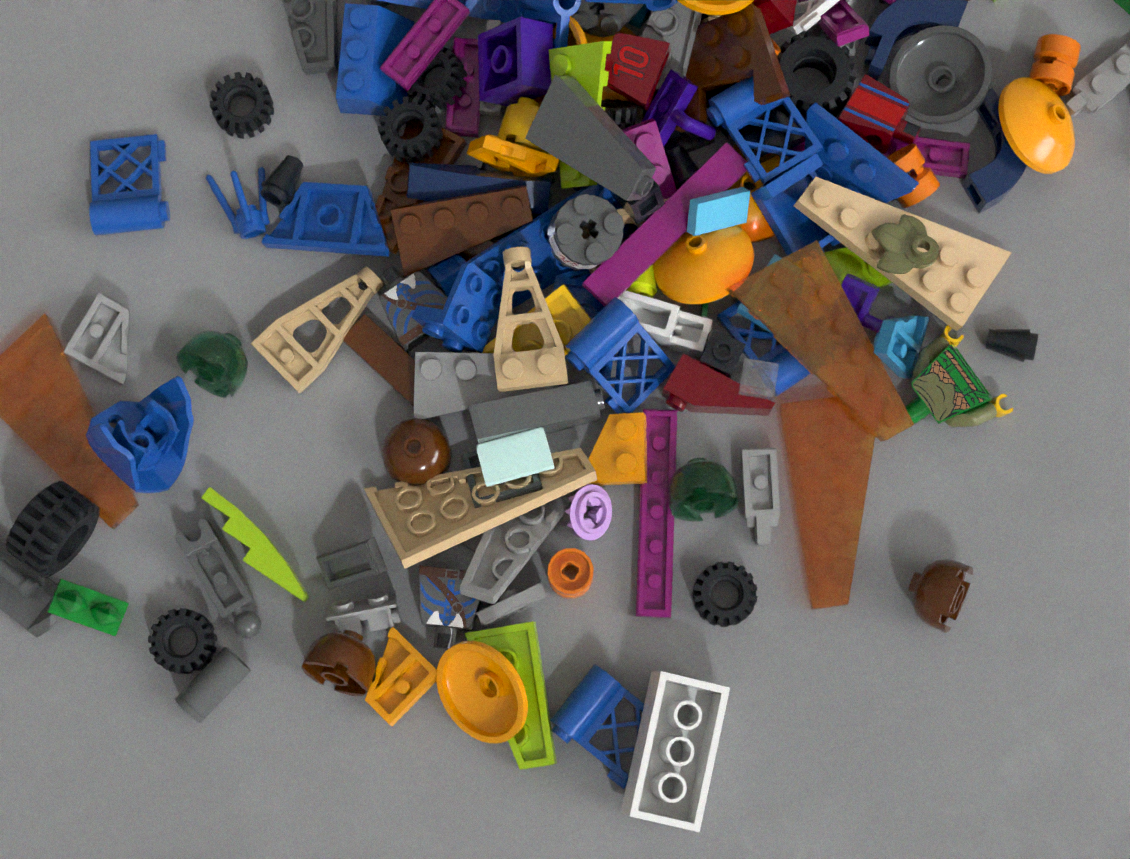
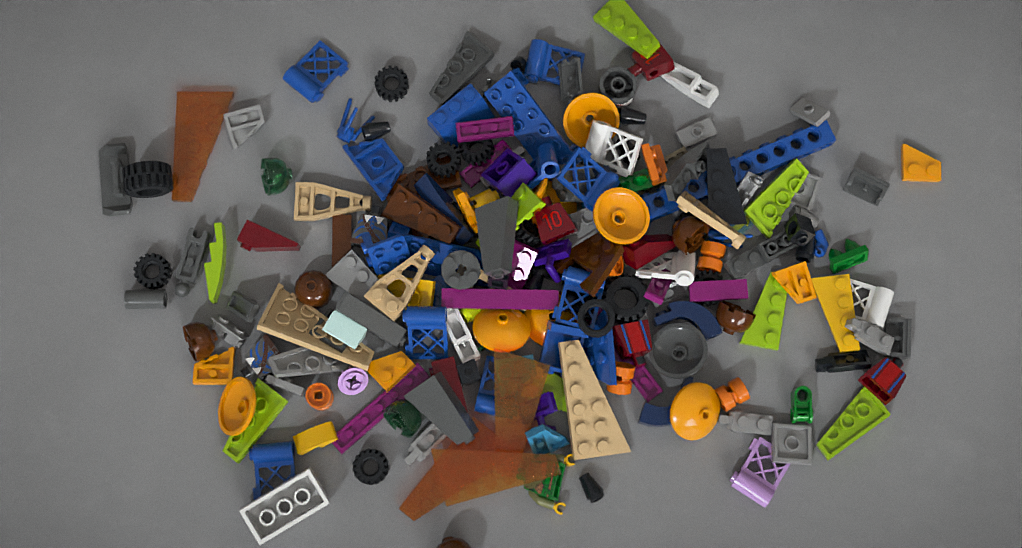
camera: 45 degrees right, 0 degrees up
(87, 607) = (131, 222): green tile -> none
(148, 438) = (227, 178): blue piece -> none
(283, 457) = (263, 240): none -> dark red slope
(617, 631) = (315, 437): none -> yellow slope
(718, 211) = (525, 314): medium azure tile -> none
(742, 427) = (443, 408): none -> dark grey slope
(758, 379) = (470, 396): clear tile -> none
(818, 99) = (596, 303): none -> black tyre
(870, 459) = (481, 473): none -> clear orange wing
(902, 244) = (583, 400): olive plate -> none

